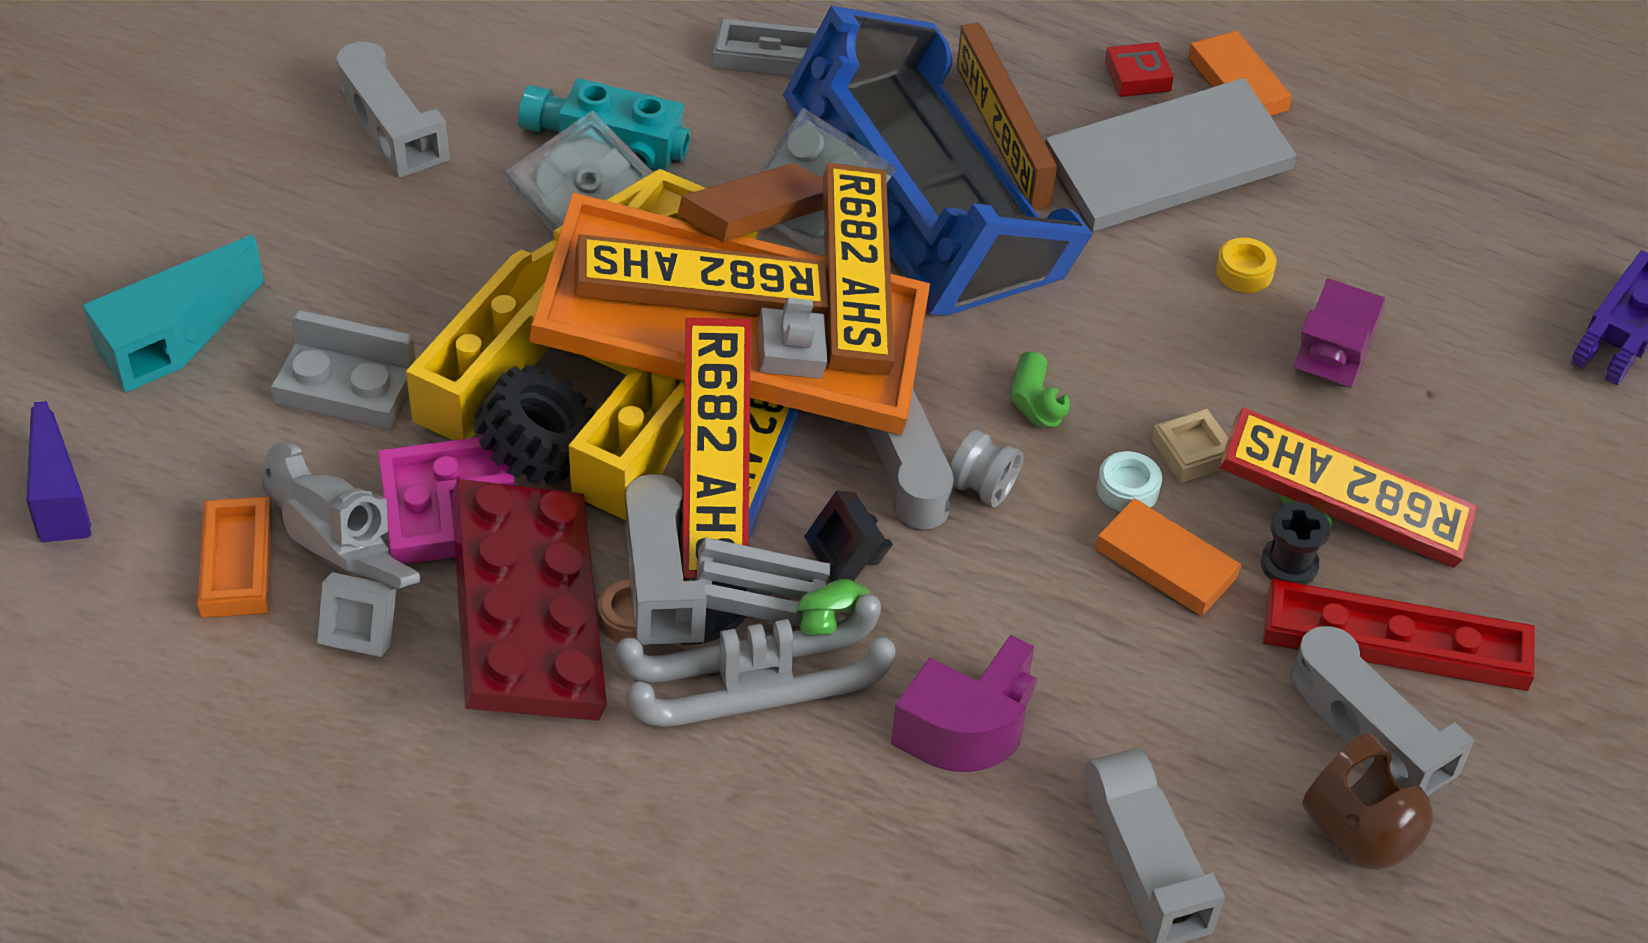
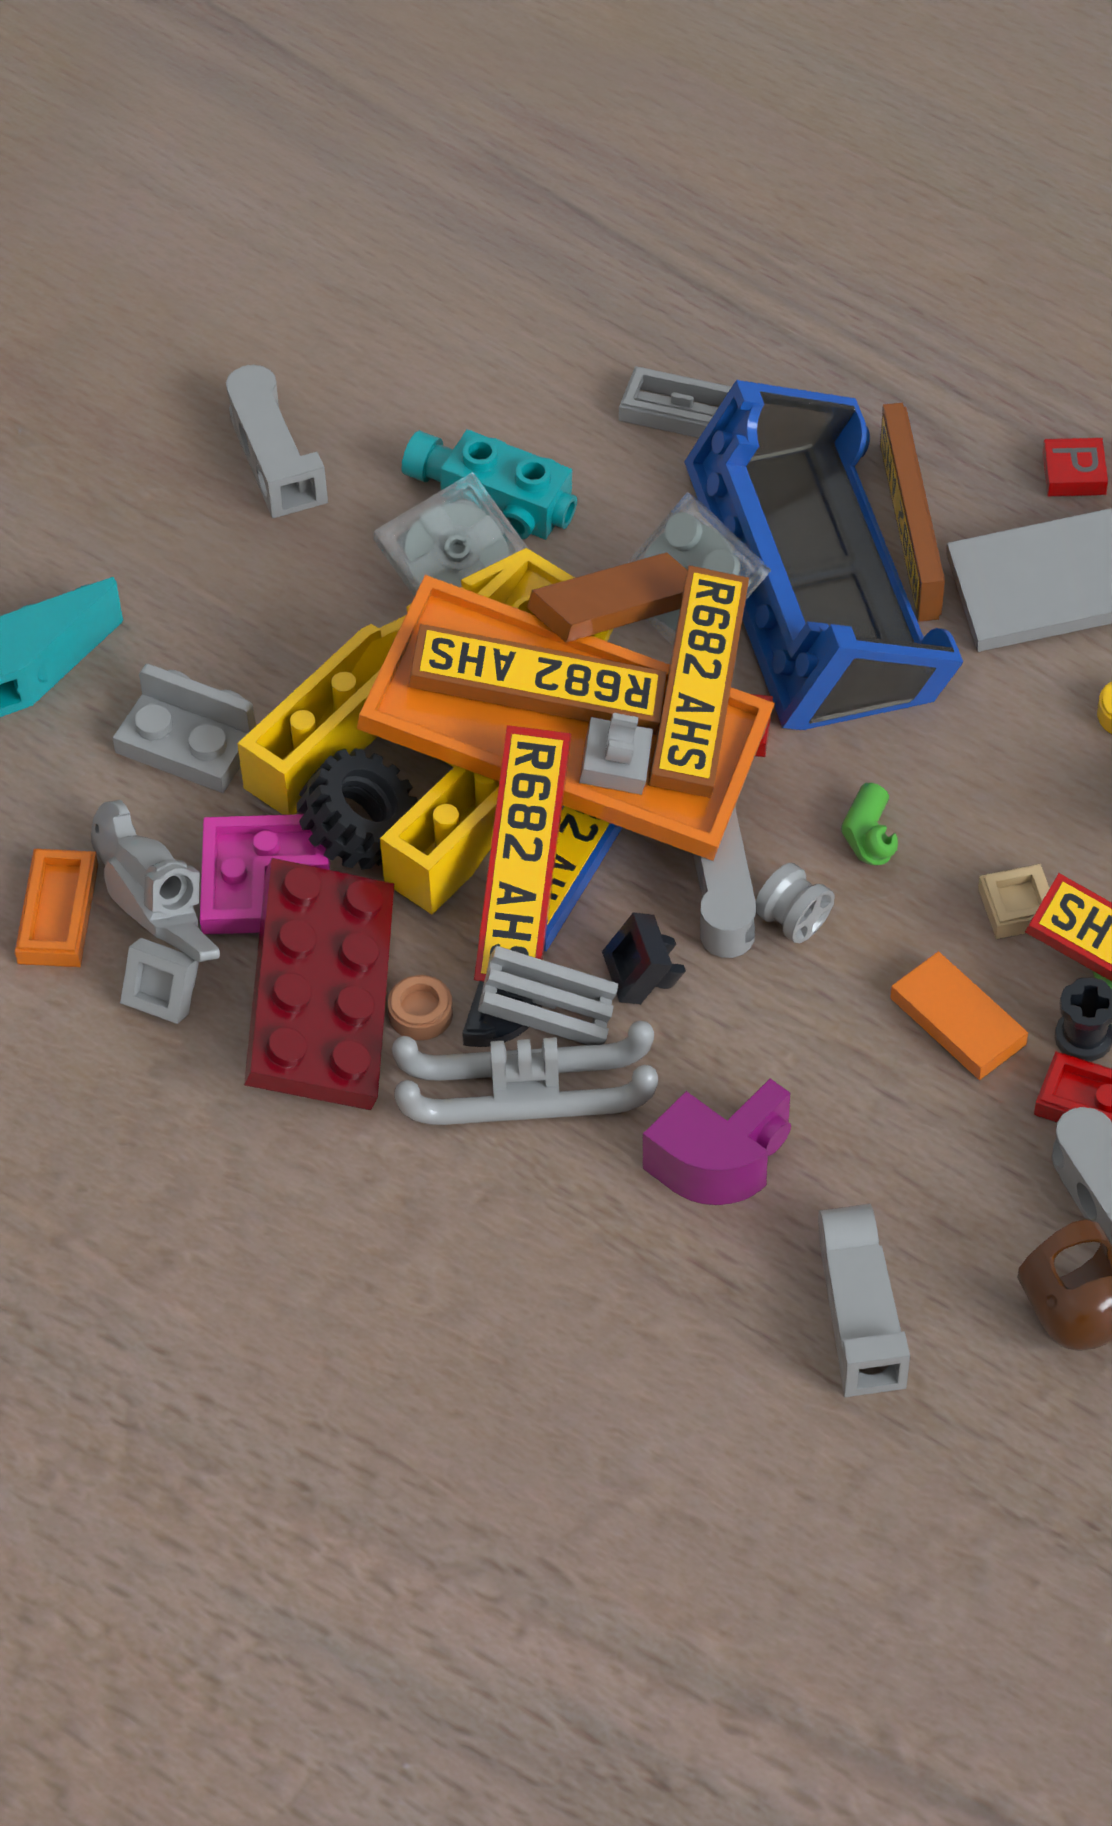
camera: 15 degrees right, 5 degrees up
(662, 602) = (445, 1006): light grey leg -> none
(820, 606) = (596, 1025): bright green arm -> none
(1128, 477) = (941, 928): light aqua tile -> none

